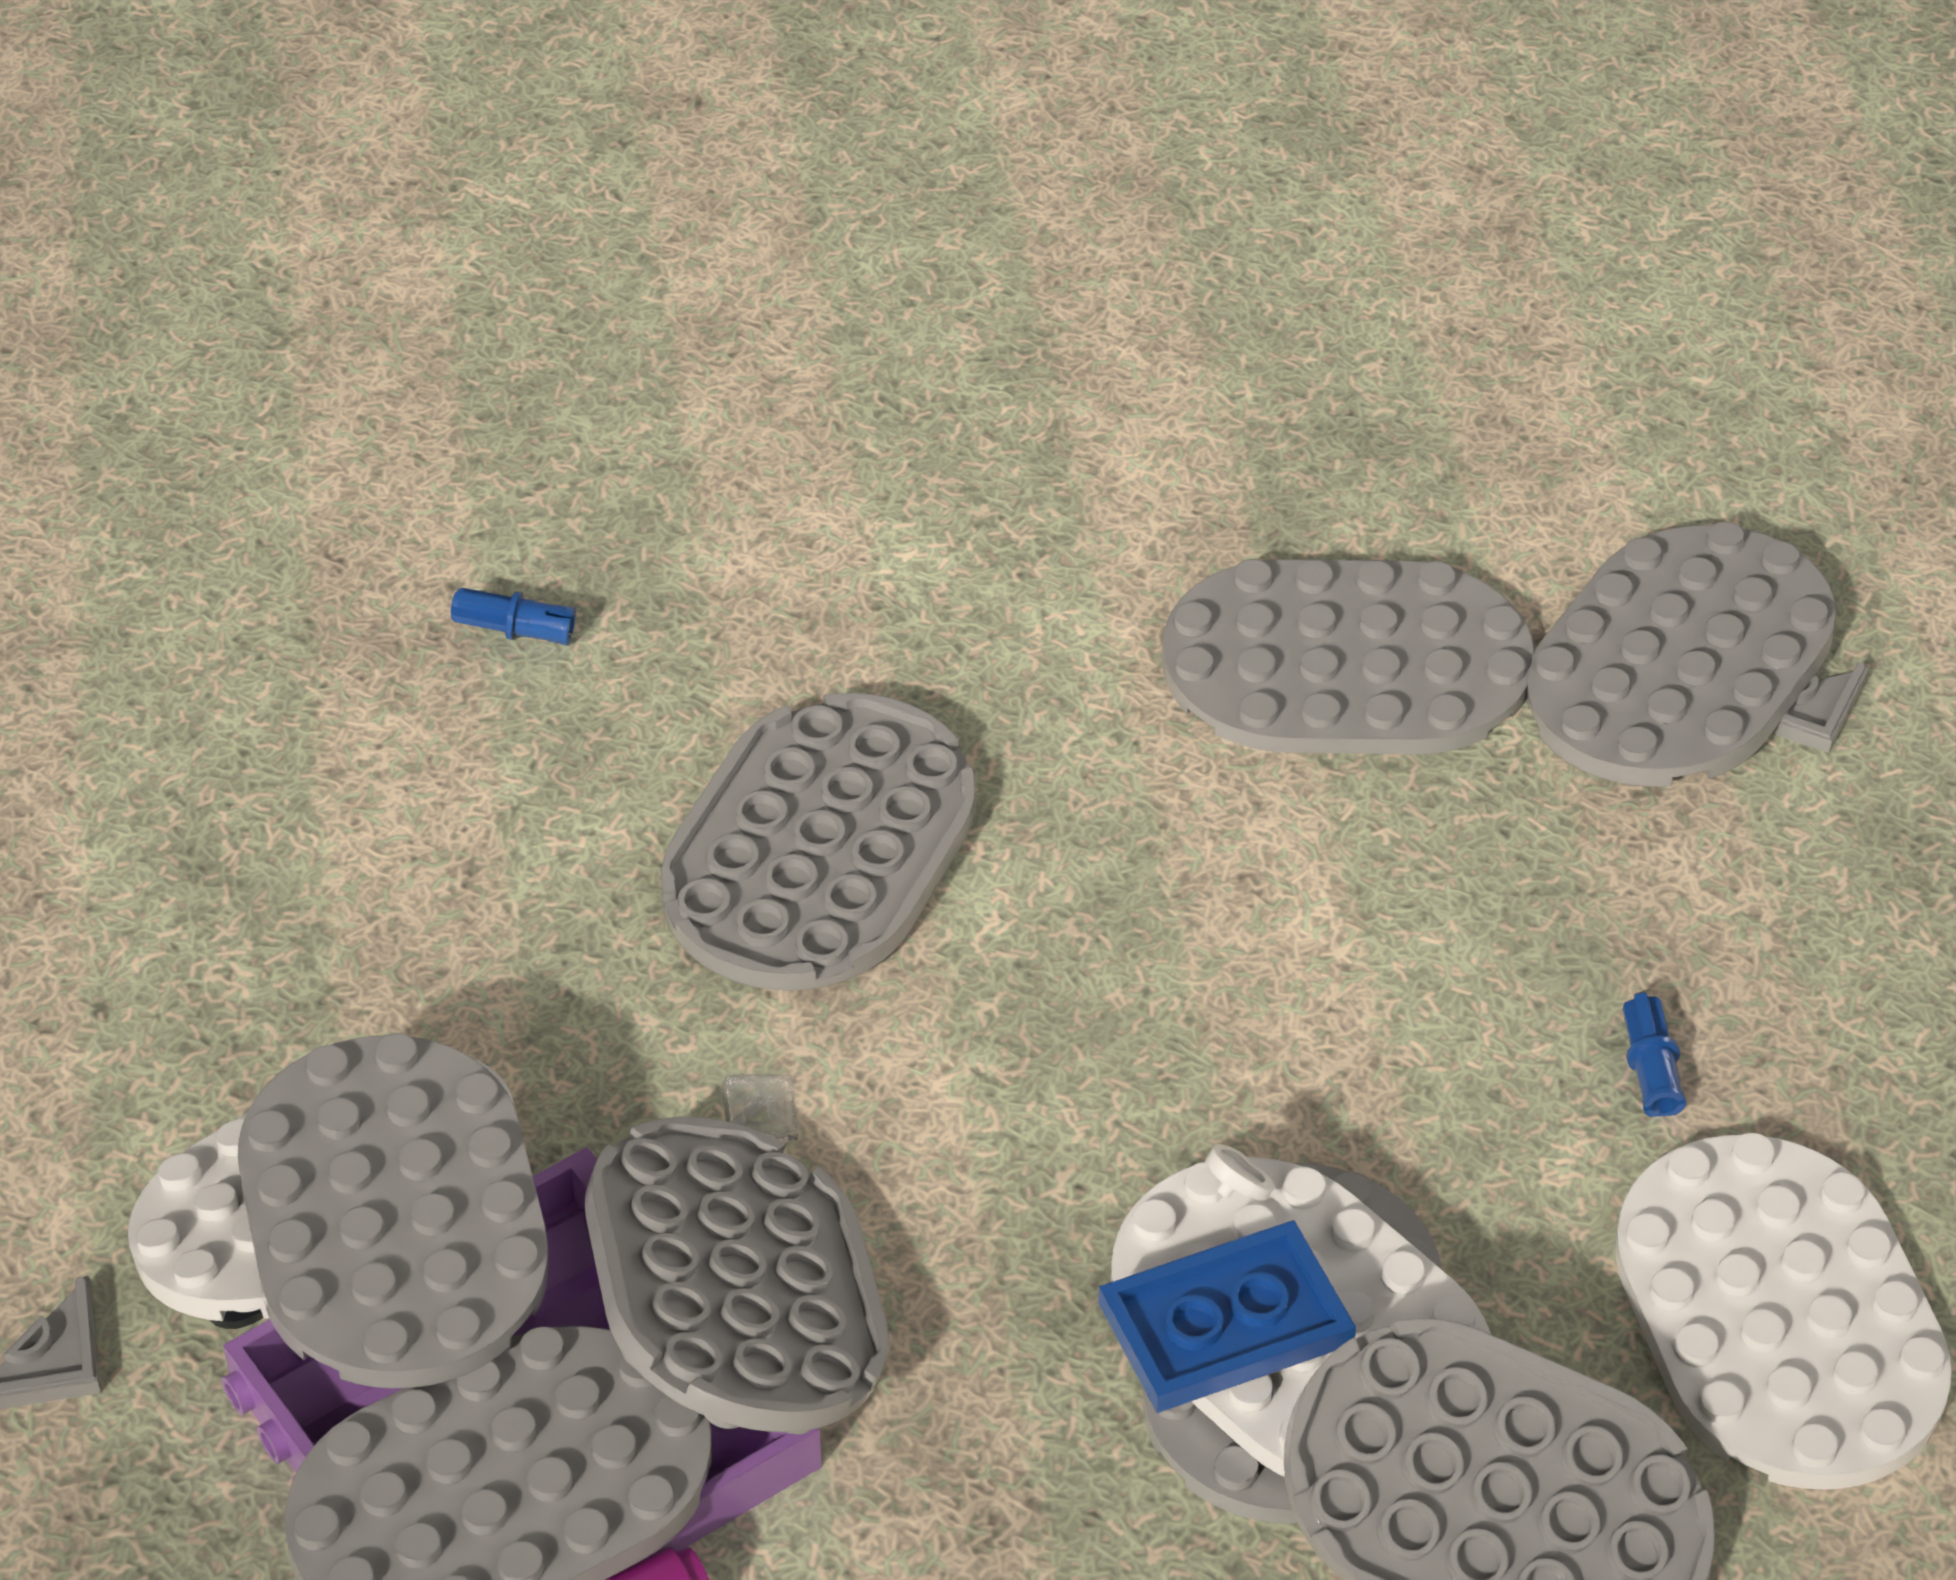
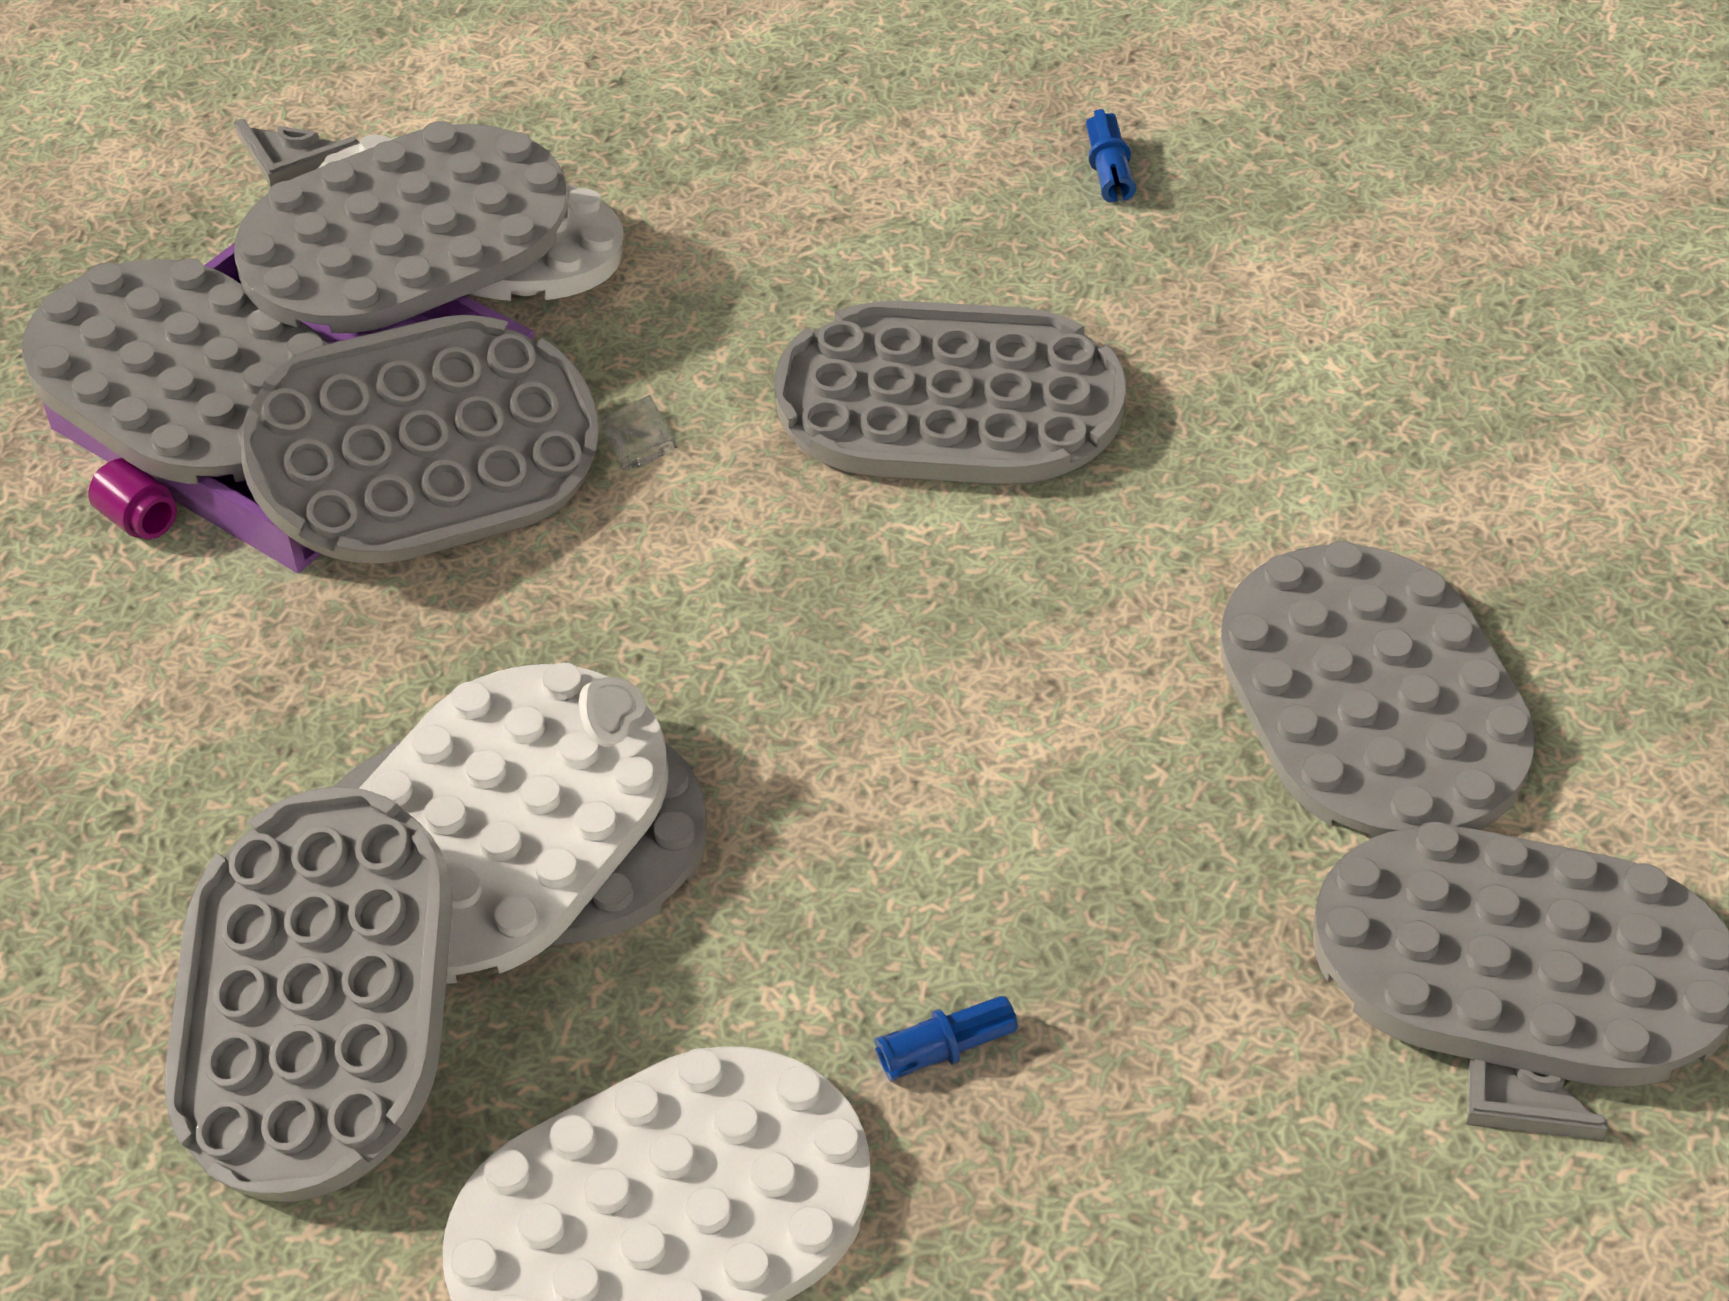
camera: 75 degrees right, 0 degrees up
(1225, 1316) = (441, 738): blue plate -> none

